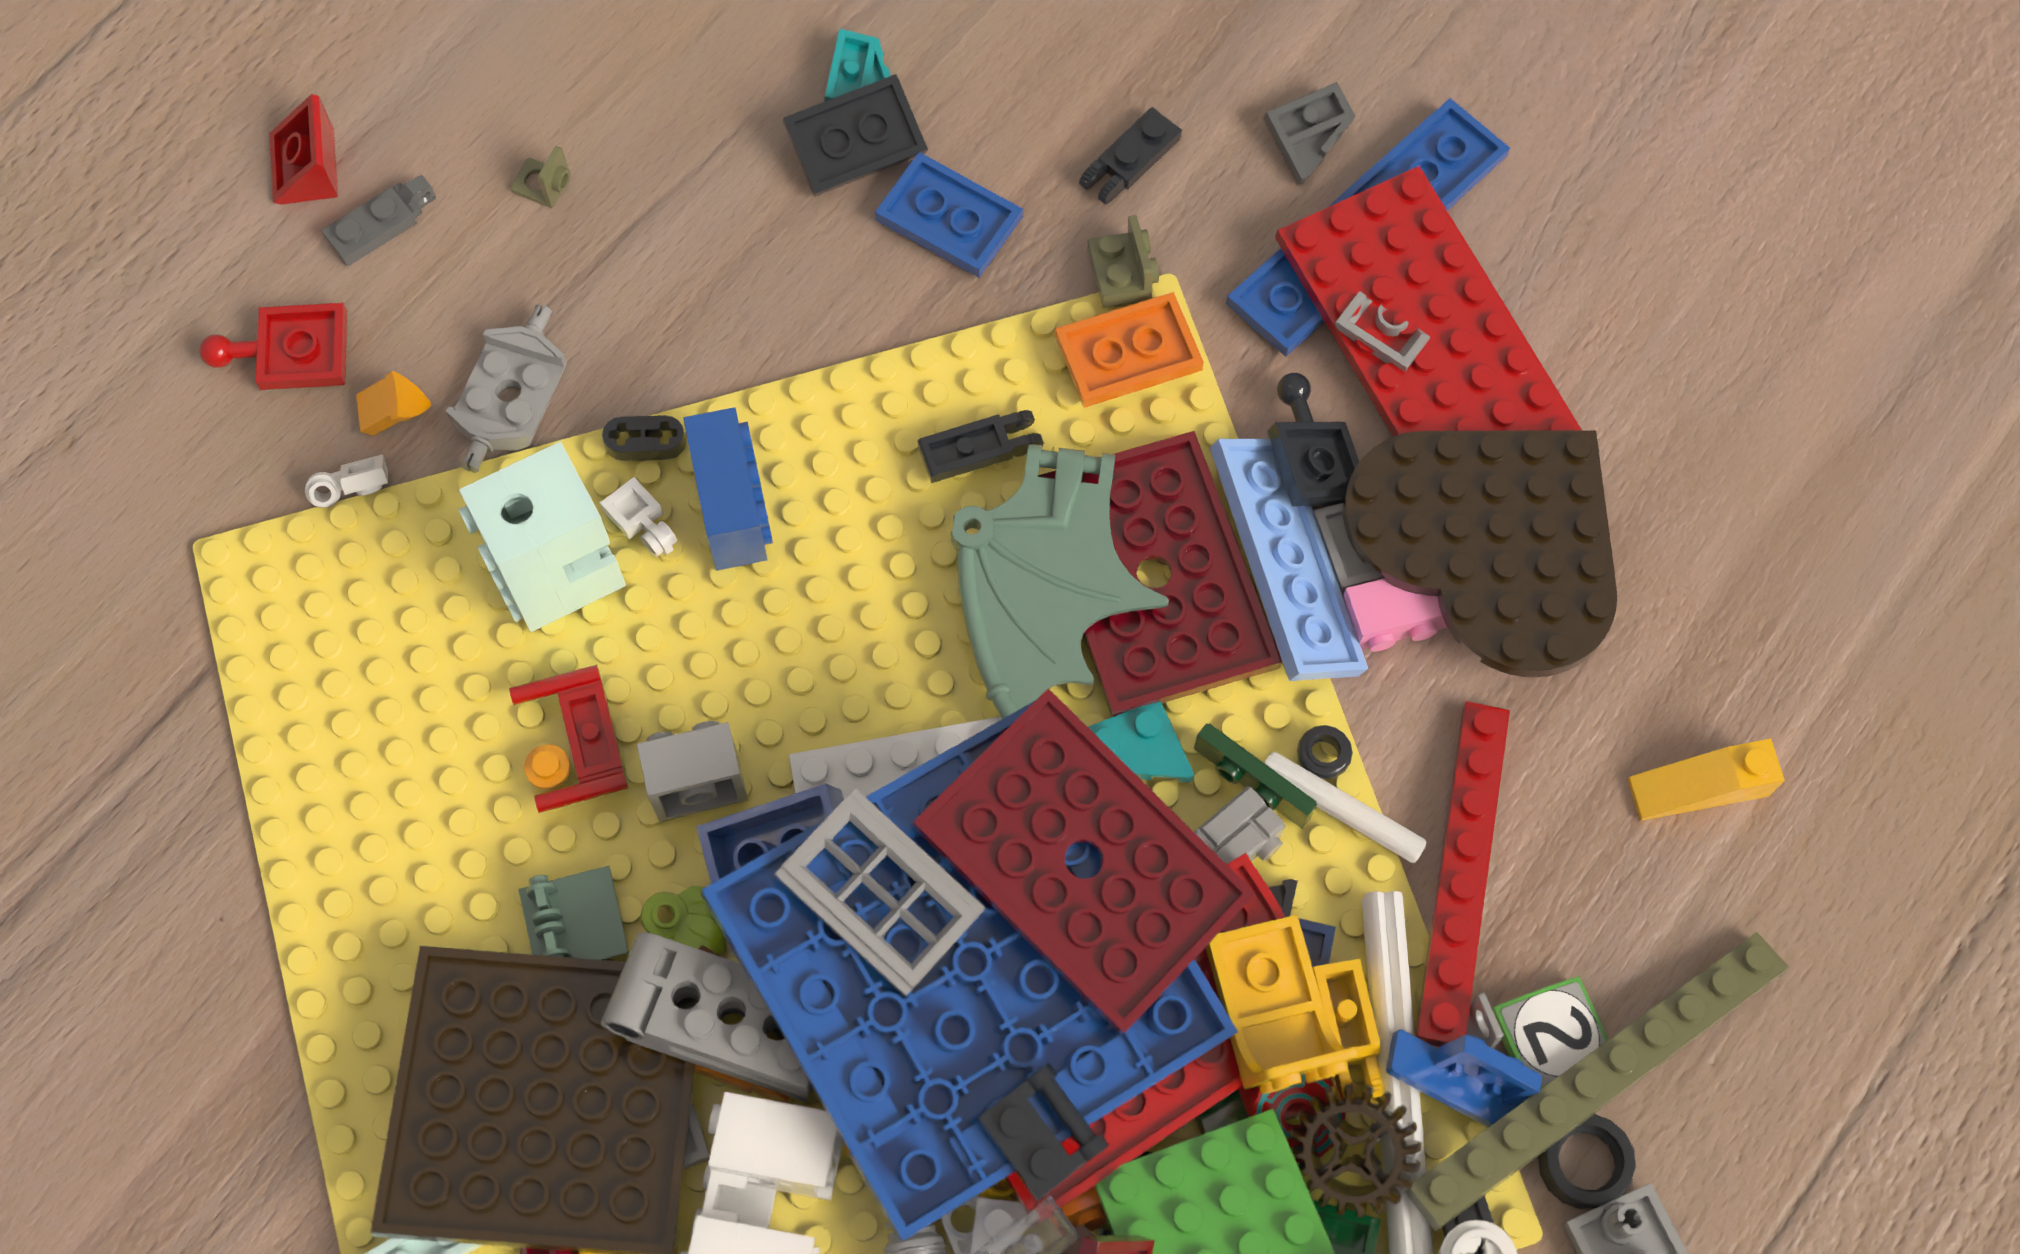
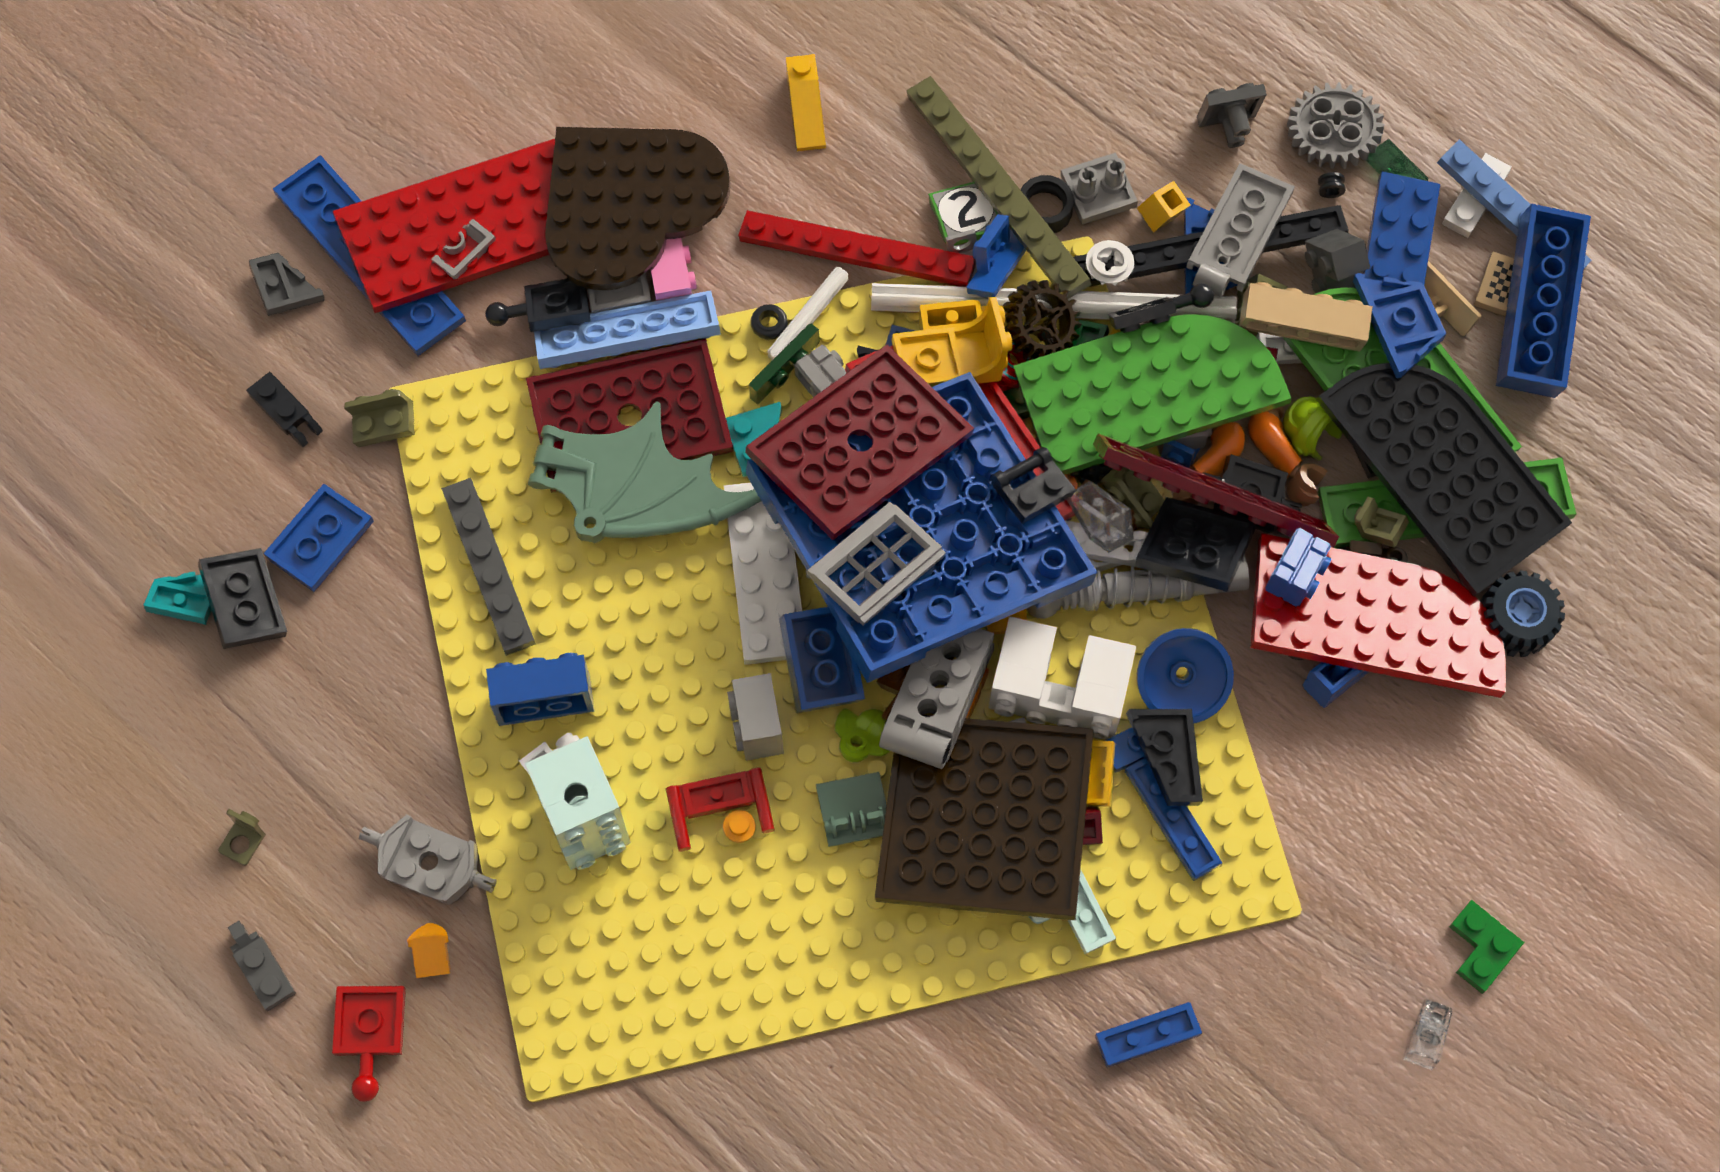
camera: 85 degrees left, 0 degrees up
(304, 155) = (192, 1025): red slope -> none
(359, 476) = (488, 972): white plate -> none
(644, 438) = (491, 757): black beam -> none
(916, 417) = (488, 566): none -> dark grey plate
(976, 445) = (518, 526): black hinge -> none
(1128, 349) = (453, 417): orange plate -> none

